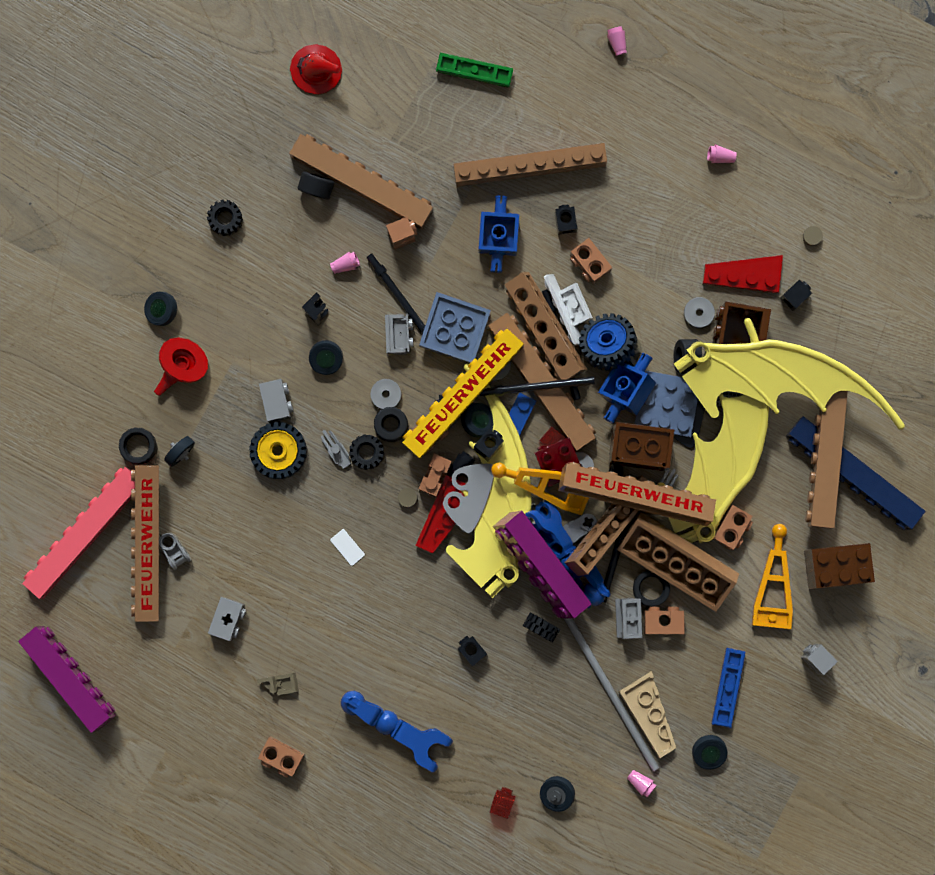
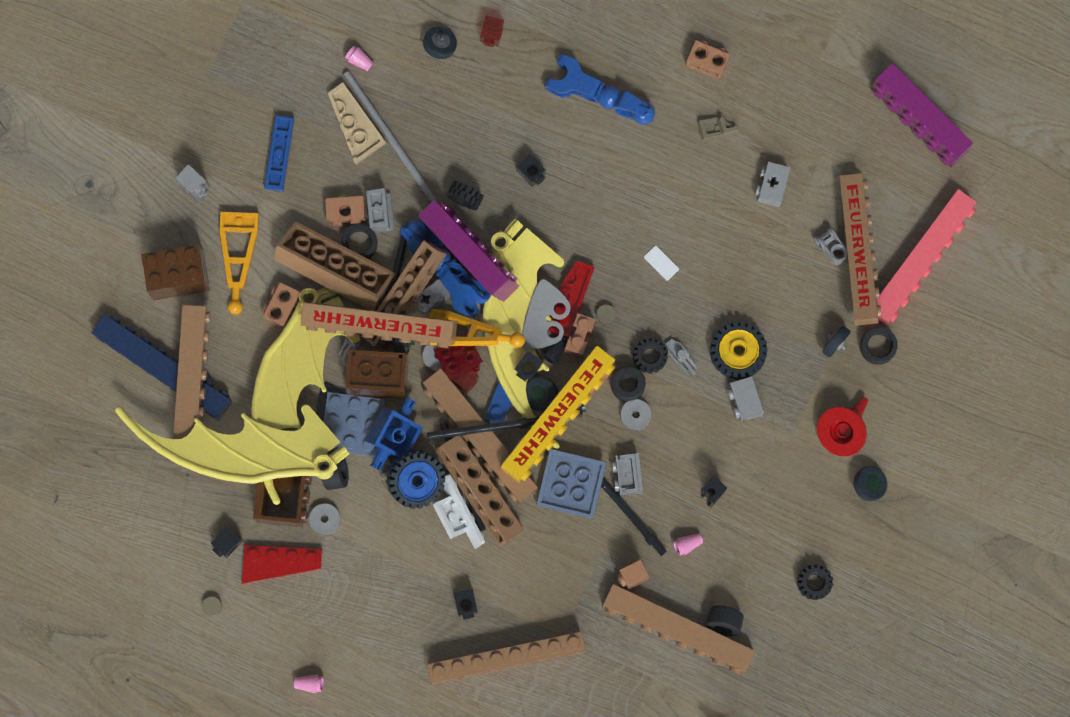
camera: 175 degrees right, 5 degrees down
(325, 357) = (699, 445): black wheel -> none
(488, 240) = (524, 592): blue brick -> none
(595, 258) = (434, 566): nougat brick -> none
(709, 752) = (295, 91): black wheel -> none

